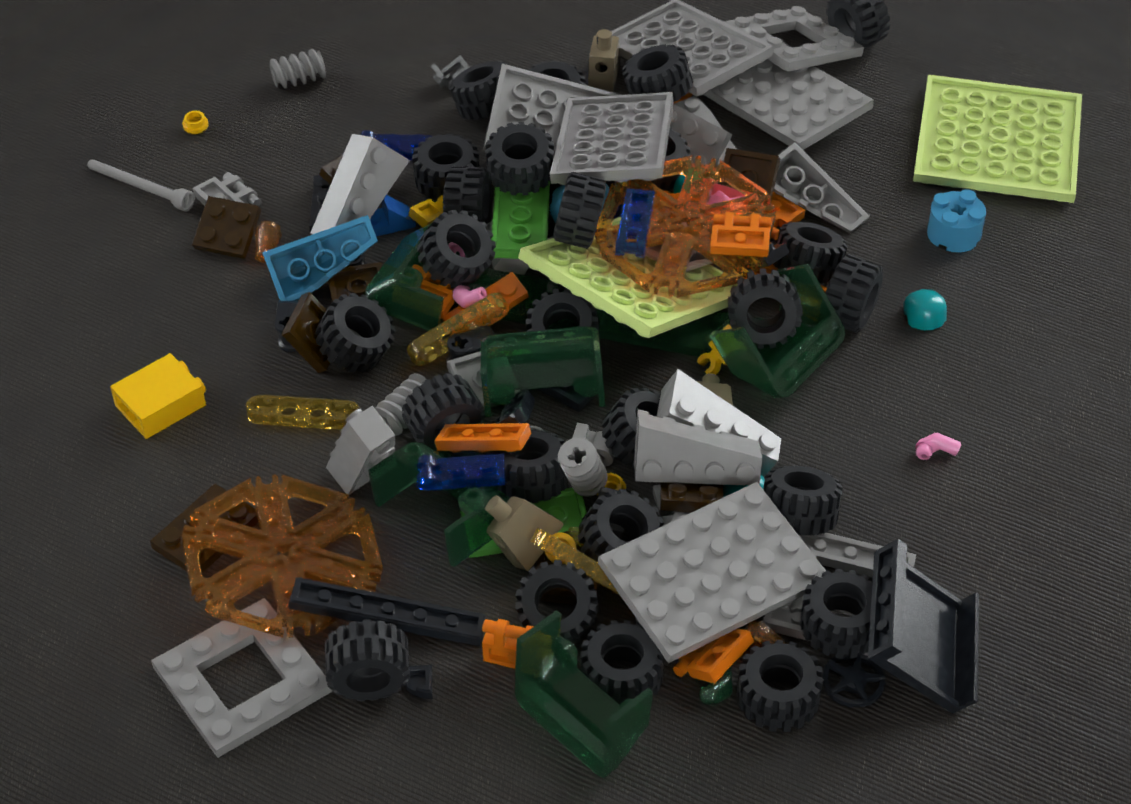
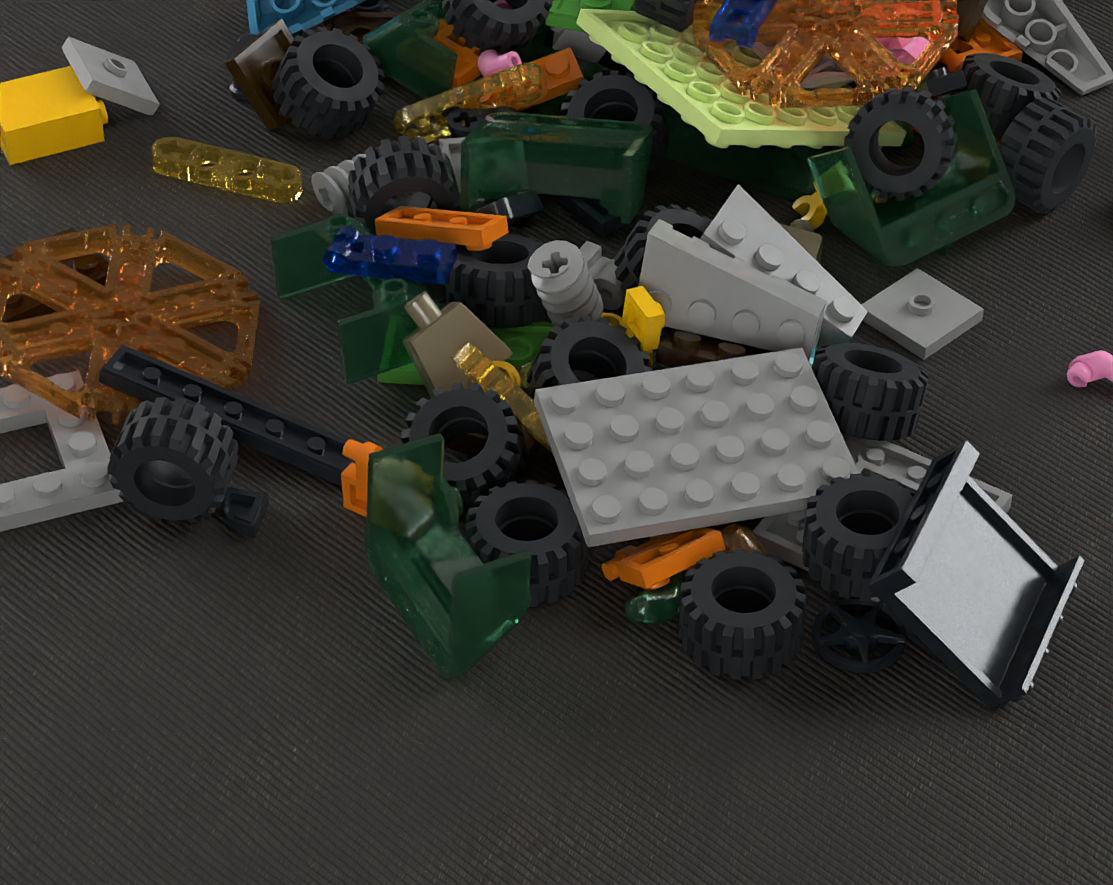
camera: 15 degrees right, 5 degrees down
(196, 356) = (110, 76): none -> light grey plate
(361, 446) = (265, 203): light grey wedge -> none
(647, 483) = (643, 319): none -> yellow plate
(740, 235) = (893, 39): orange plate -> none
(808, 426) = (921, 313): none -> light grey plate

